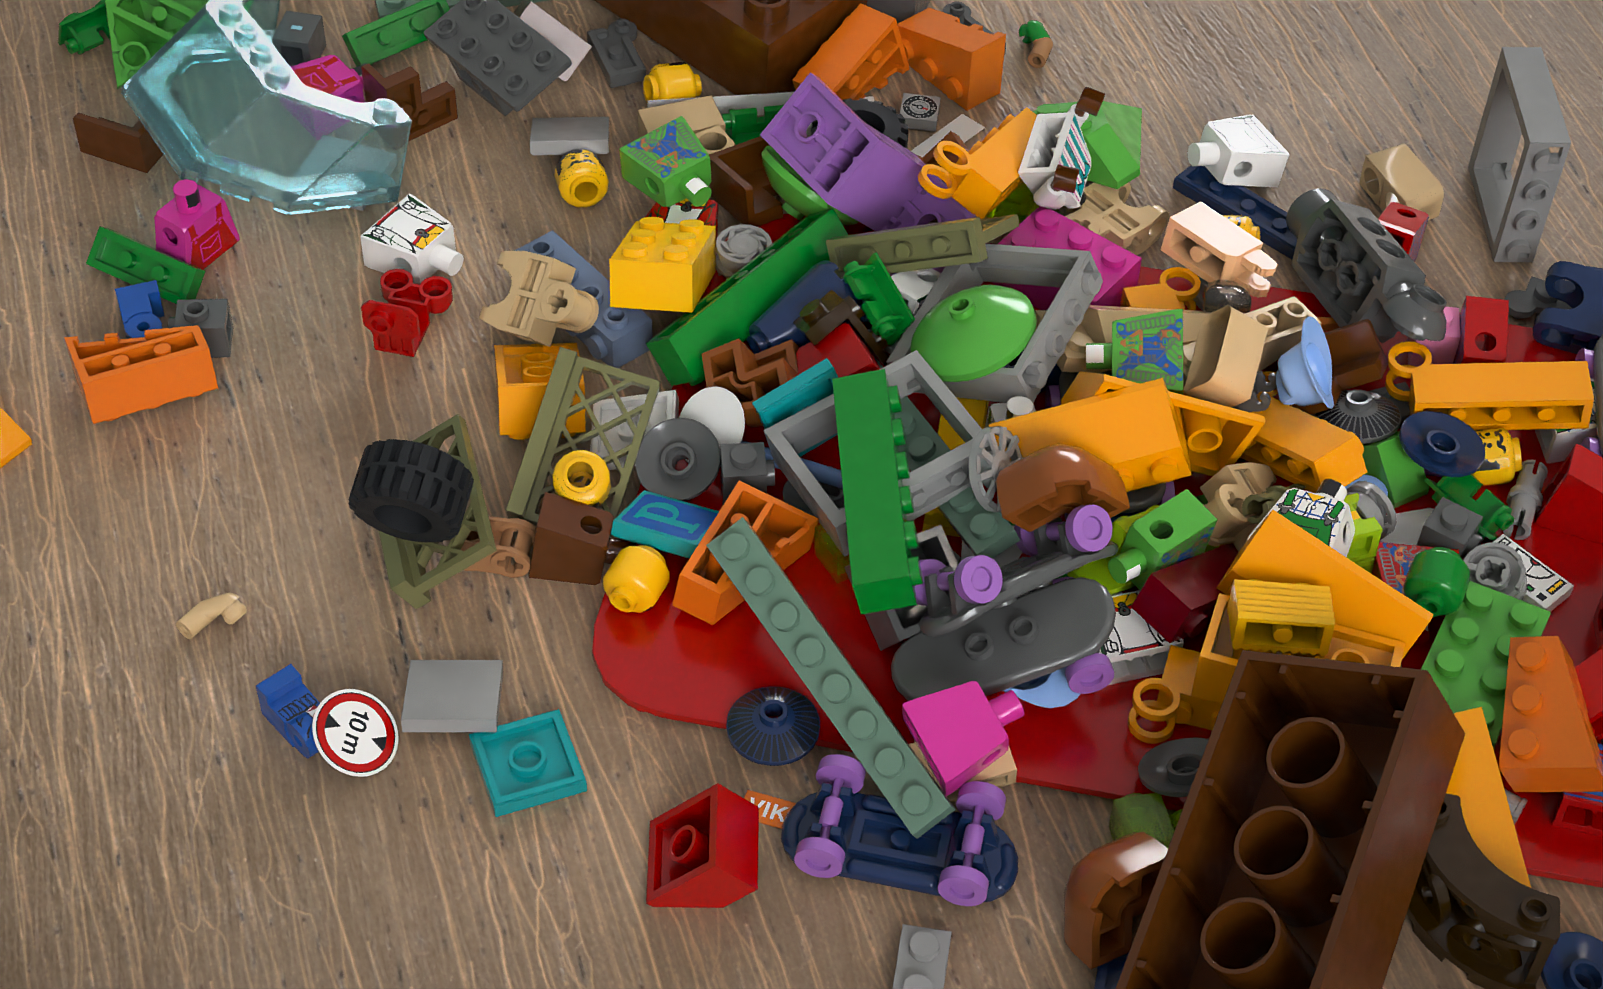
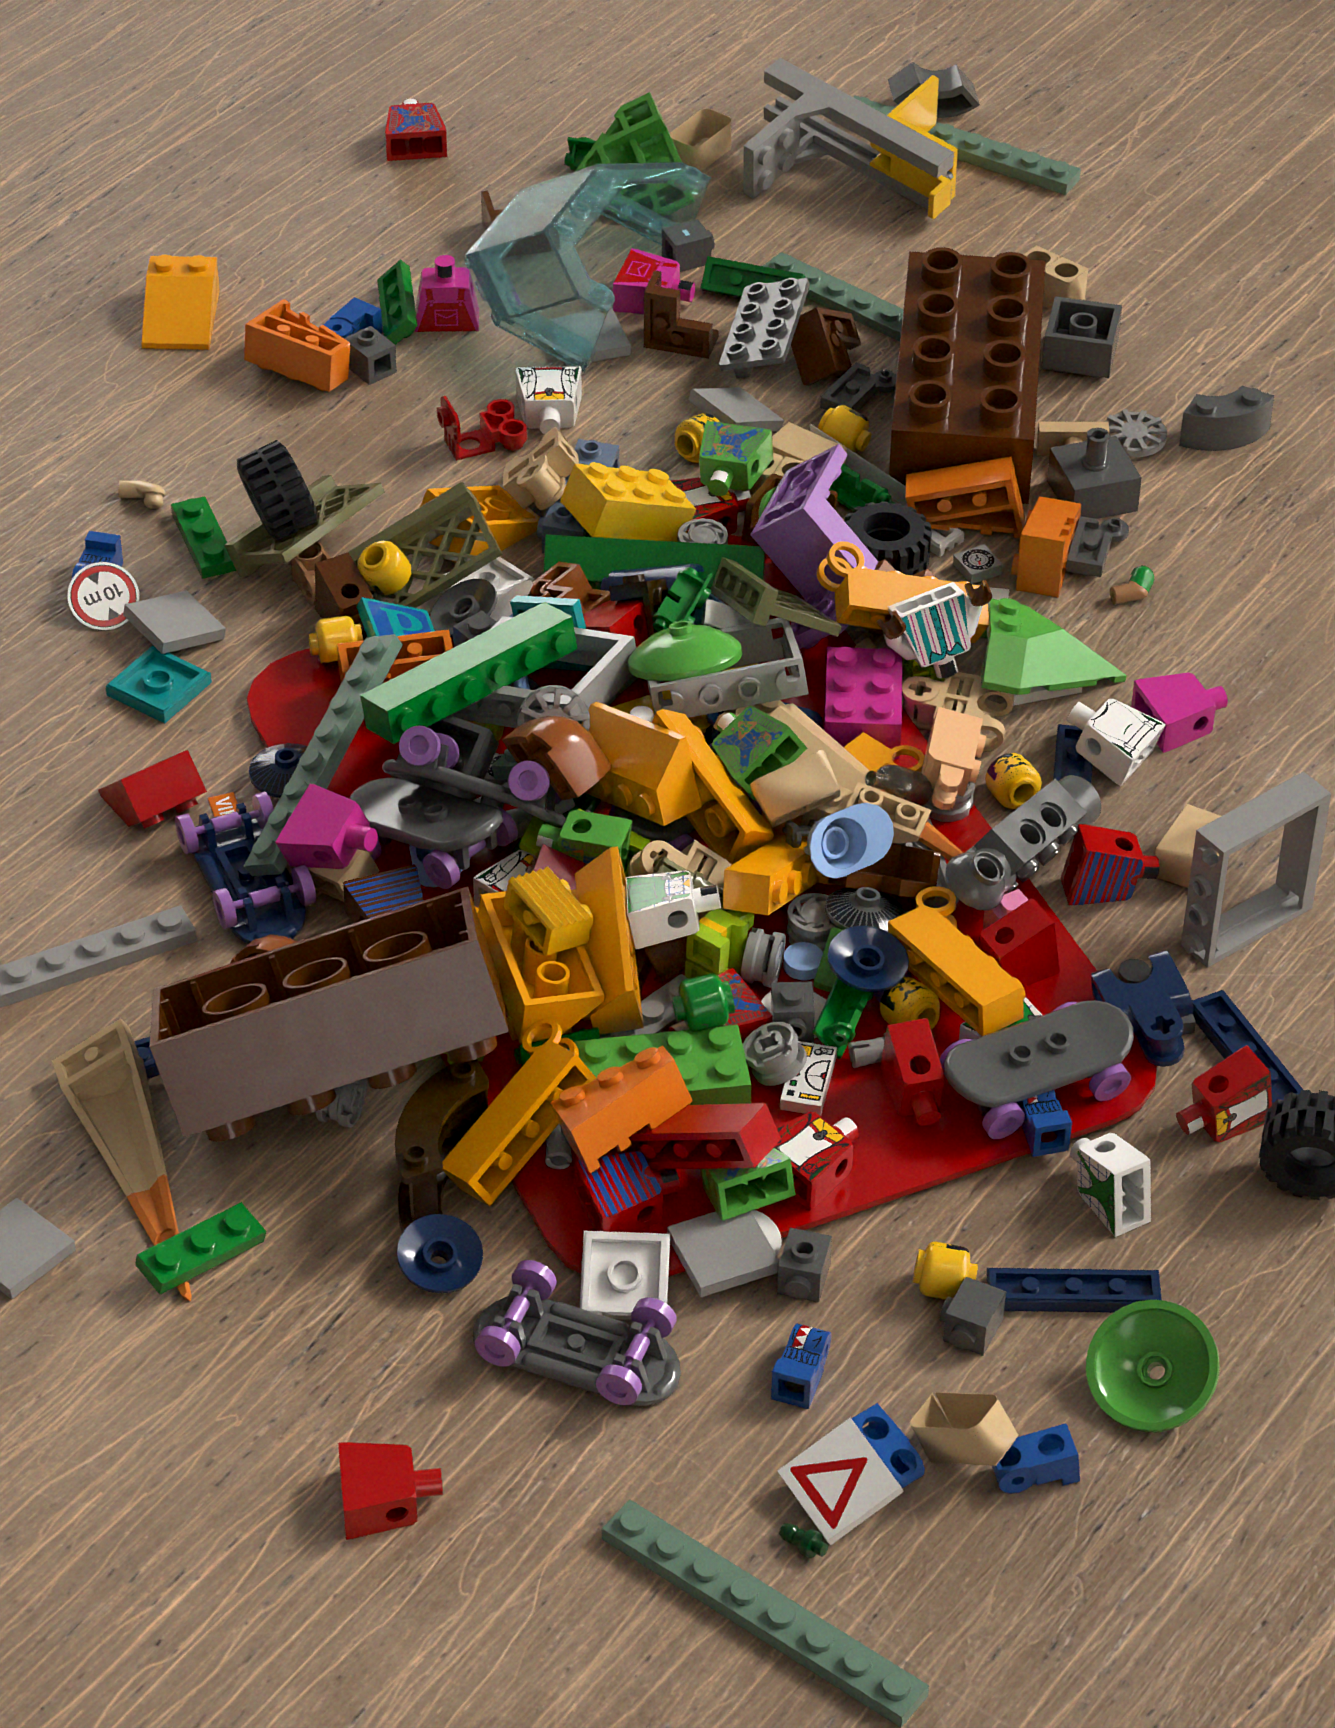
camera: 55 degrees right, 5 degrees down
(332, 603) = (202, 536): none -> green plate
(1073, 752) = (381, 893): none -> reddish brown torso
(1217, 95) = (1180, 704): none -> dark pink torso

